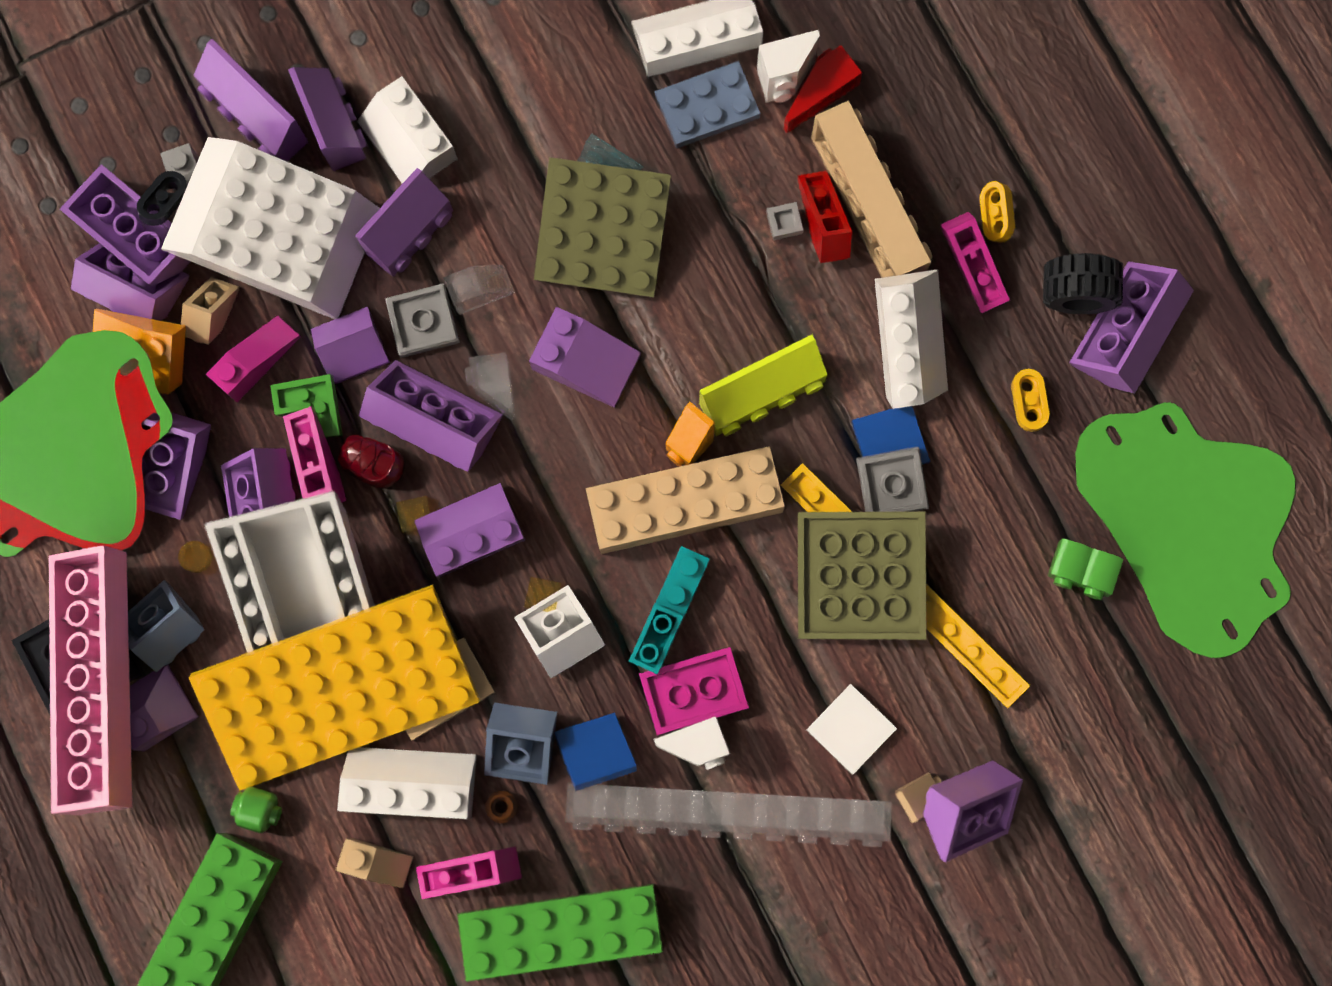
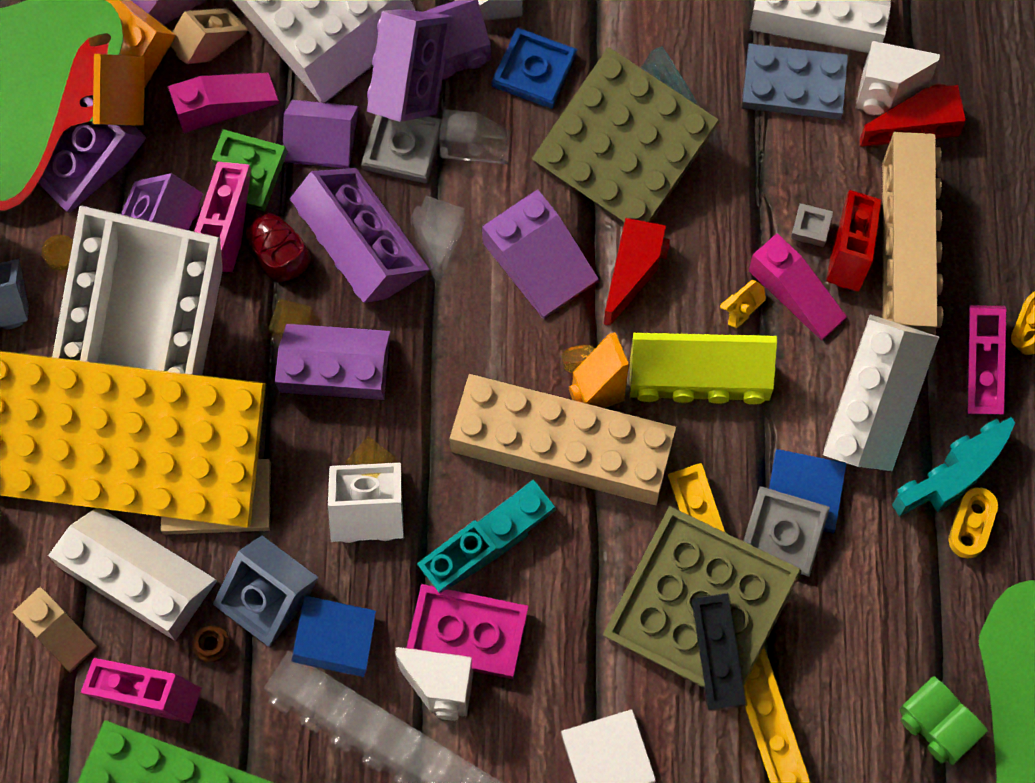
camera: 25 degrees right, 10 degrees down
(170, 402) = (118, 89): none -> light orange slope
(394, 255) = (408, 64): none -> medium lavender slope
(493, 199) = (534, 68): none -> blue tile
(661, 426) = (575, 356): none -> clear yellow tile
(663, 321) = (636, 262): none -> red slope
(765, 313) = (744, 303): none -> yellow piece
(799, 279) = (796, 286): none -> dark pink slope
(897, 609) = (719, 652): none -> black plate
(1004, 357) = (964, 468): none -> teal slope

